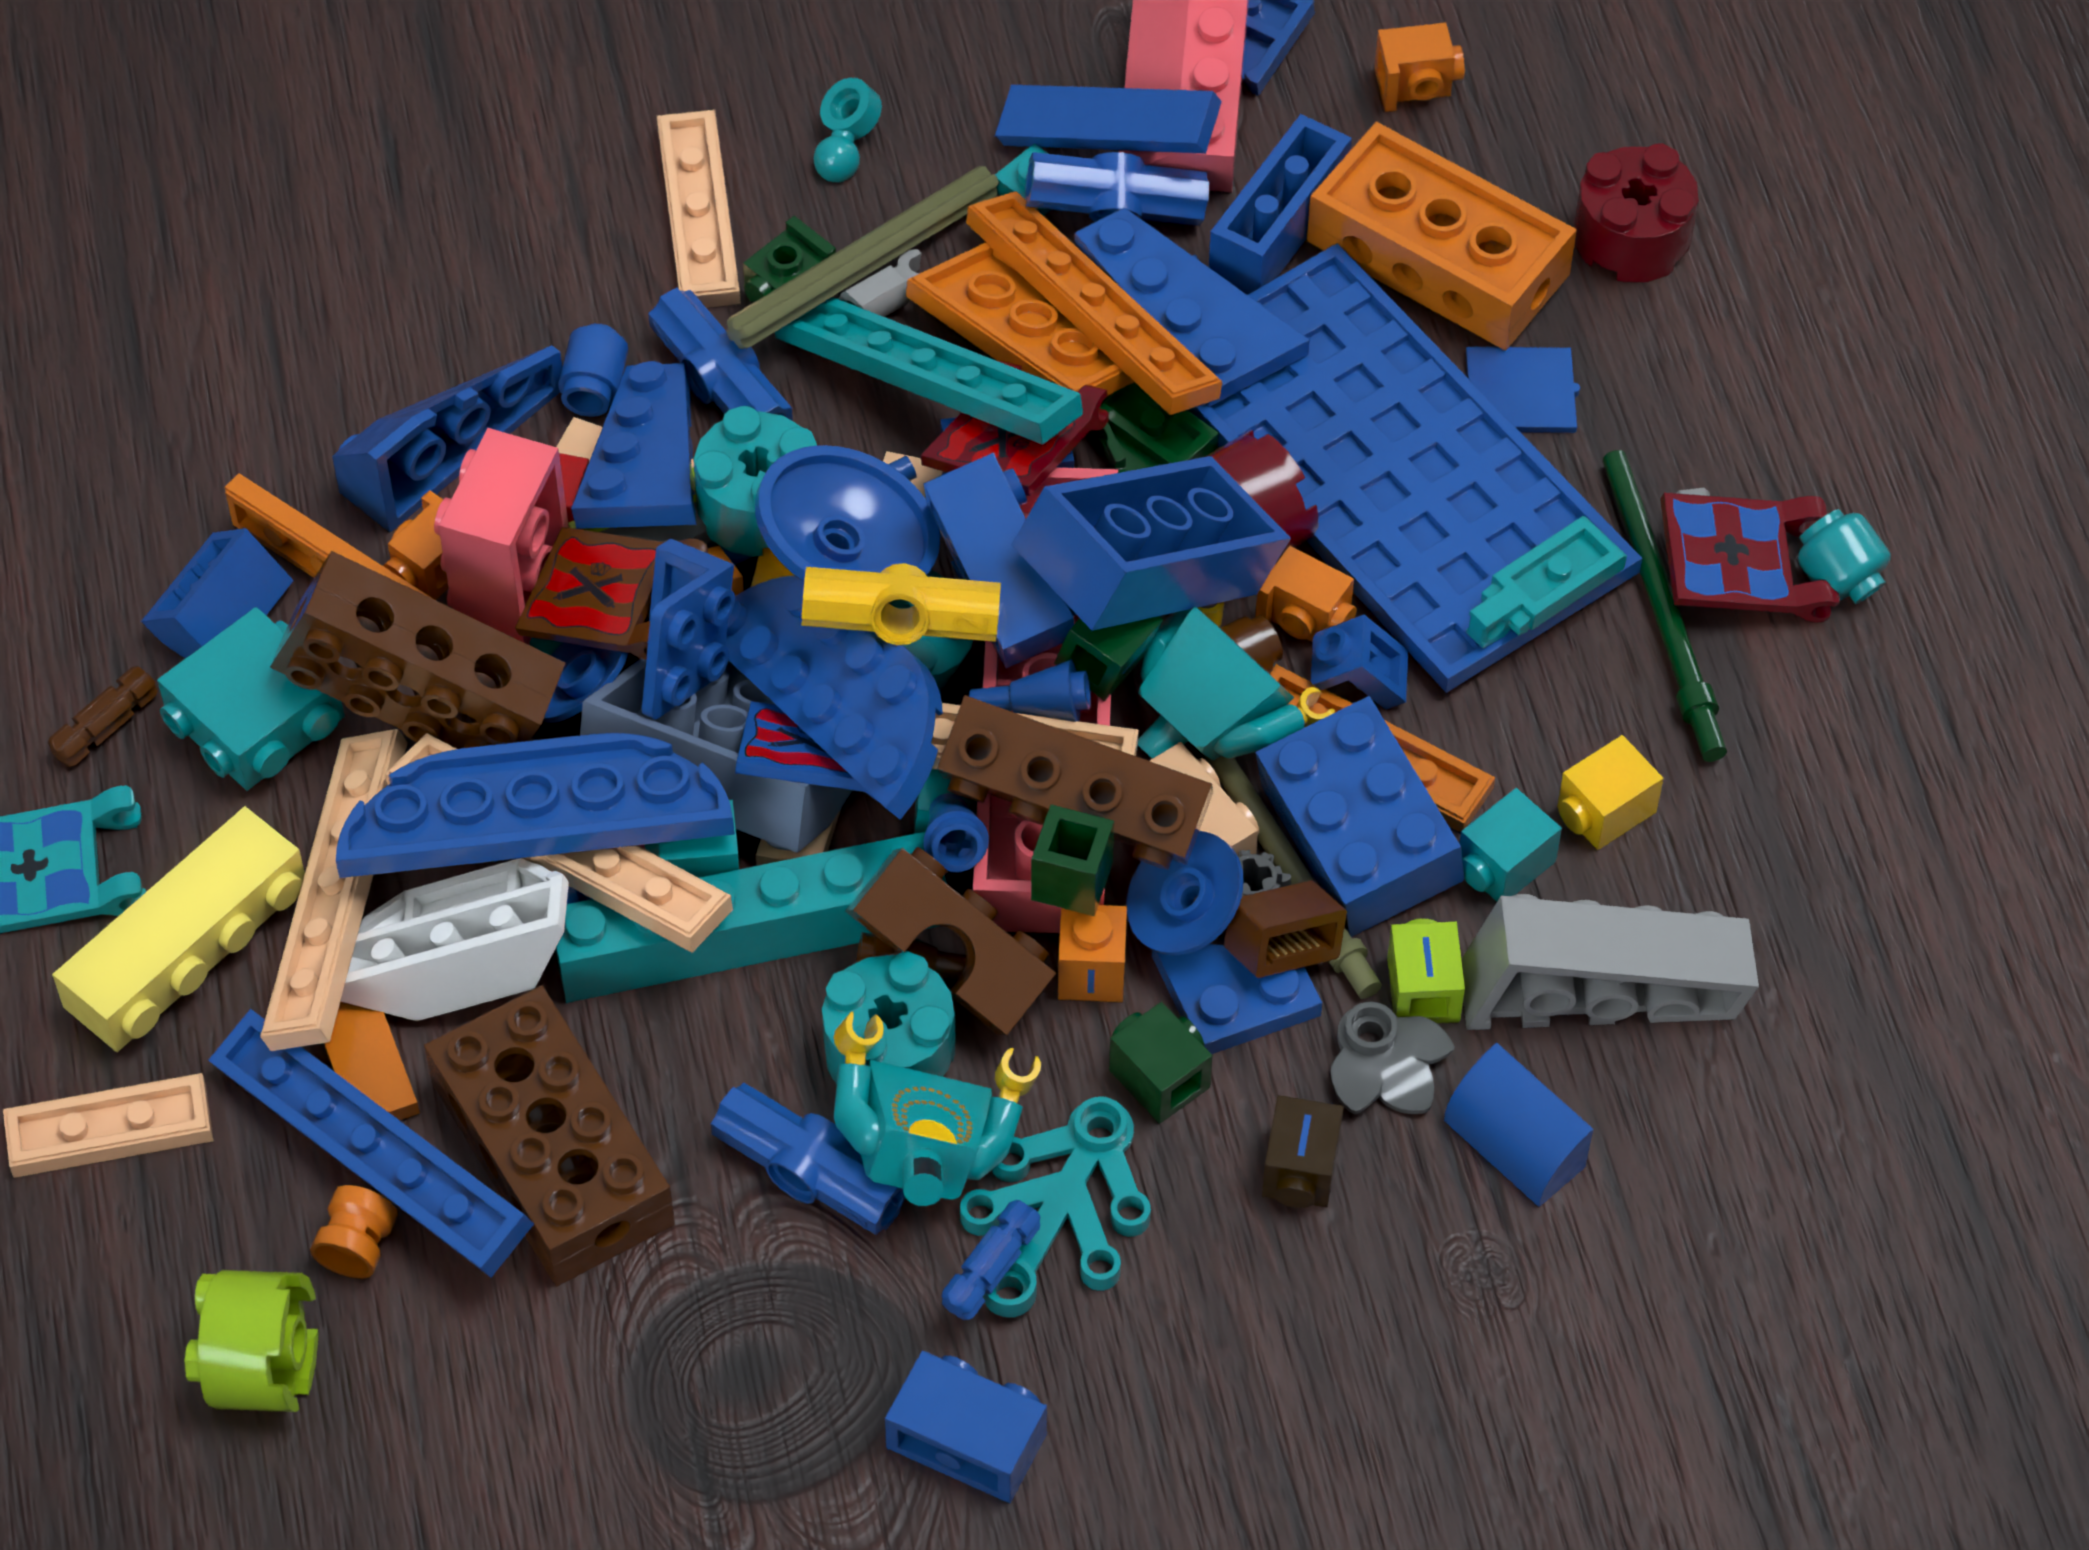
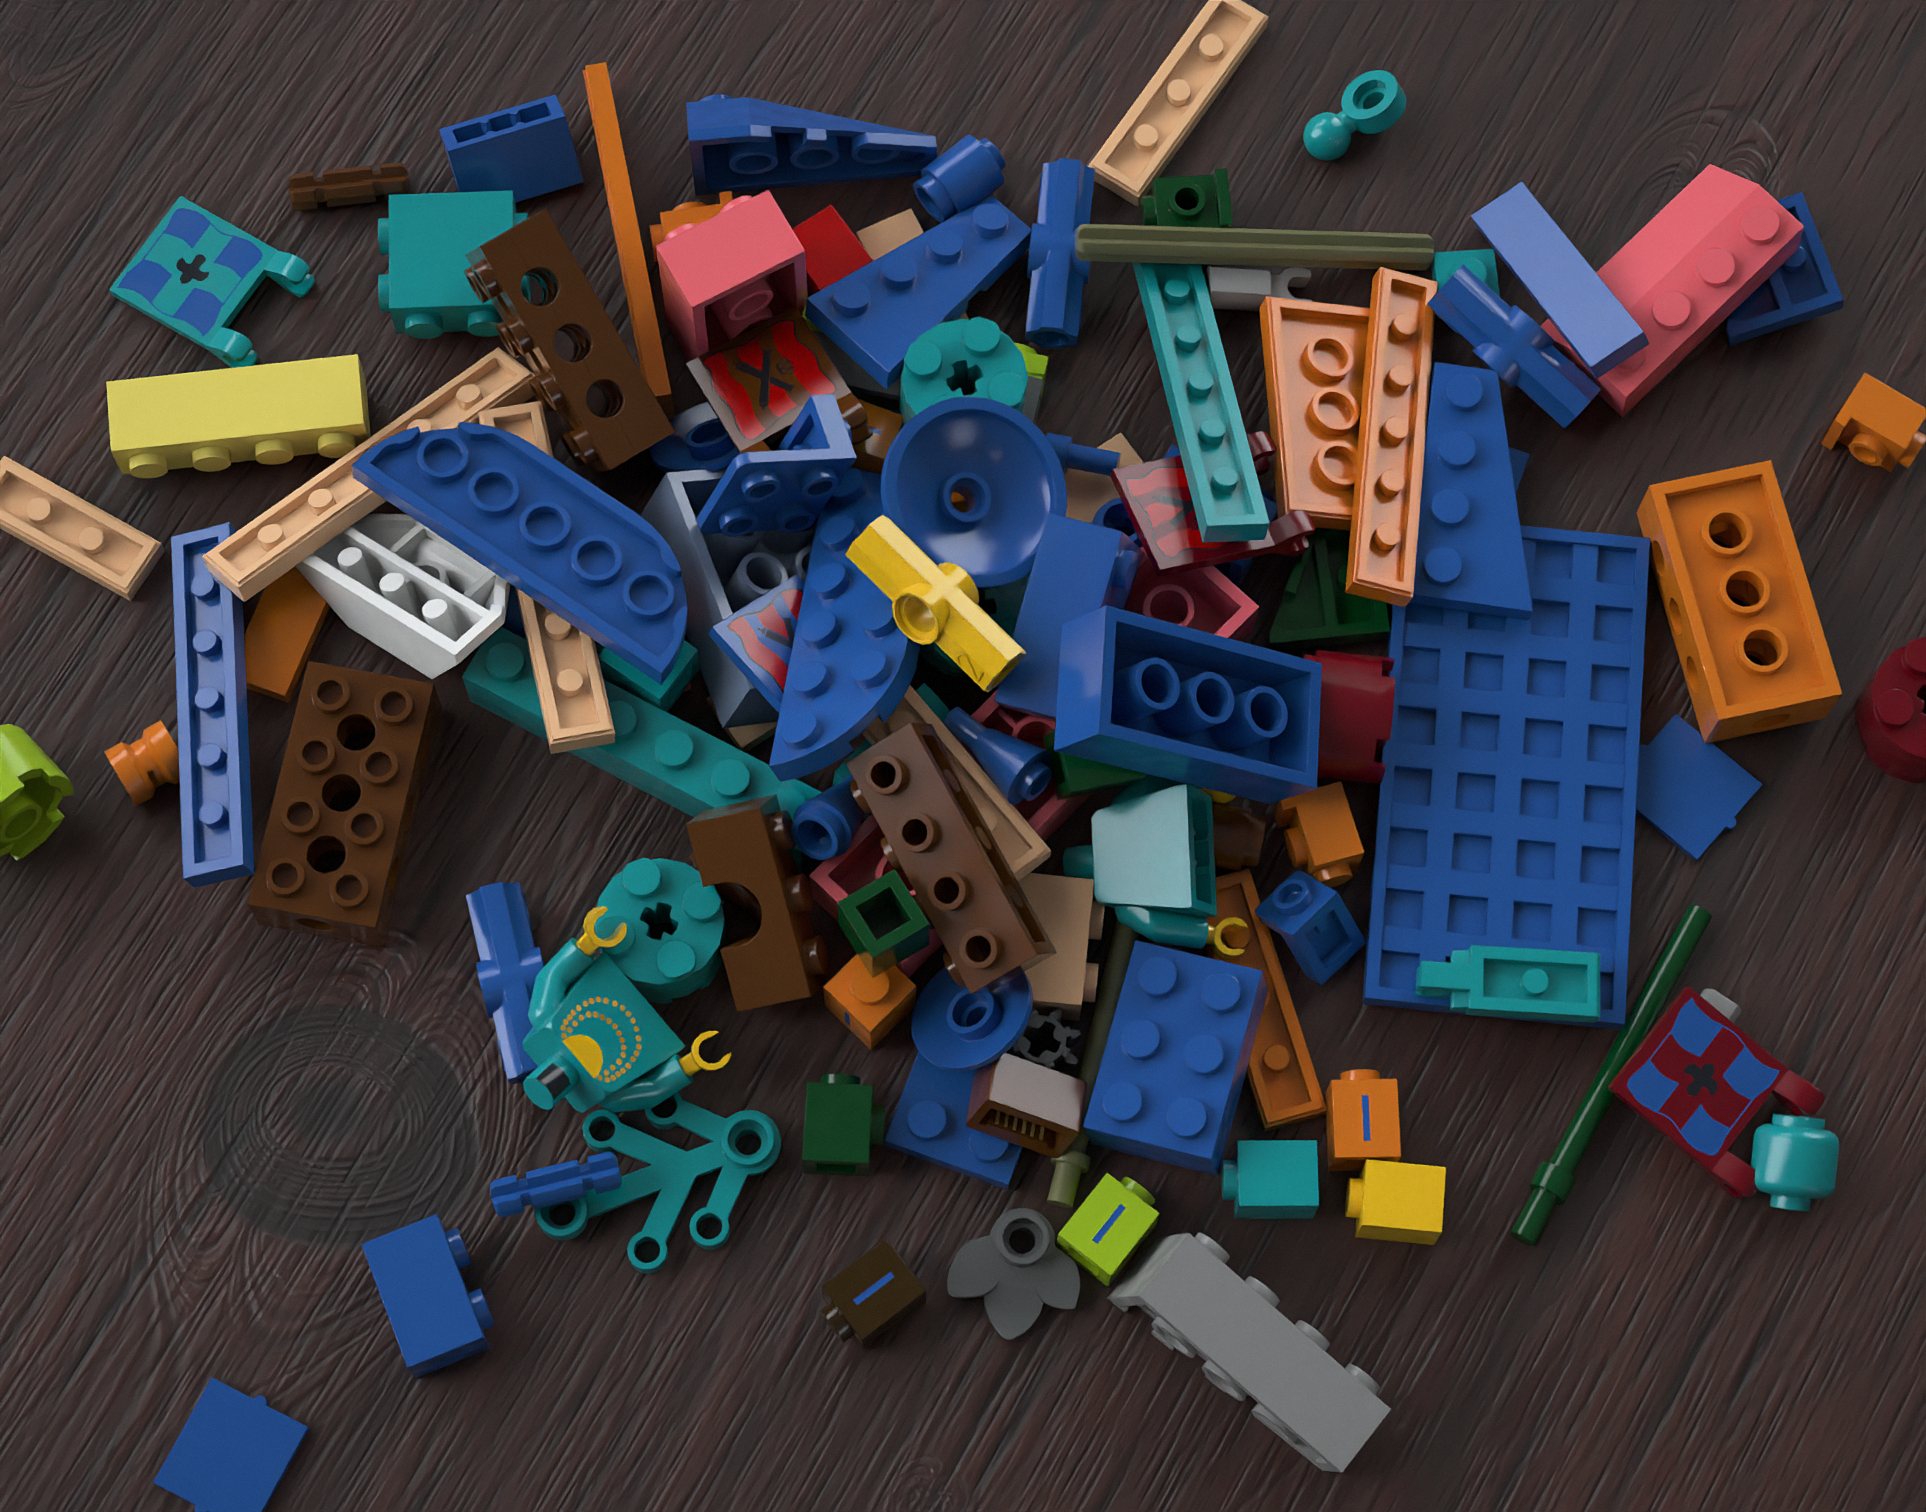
camera: 40 degrees right, 15 degrees up
(1272, 210) = (1614, 469): blue brick -> none
(1519, 1125) = (1053, 1417): blue brick -> none
(1529, 756) = (1362, 1120): none -> orange brick

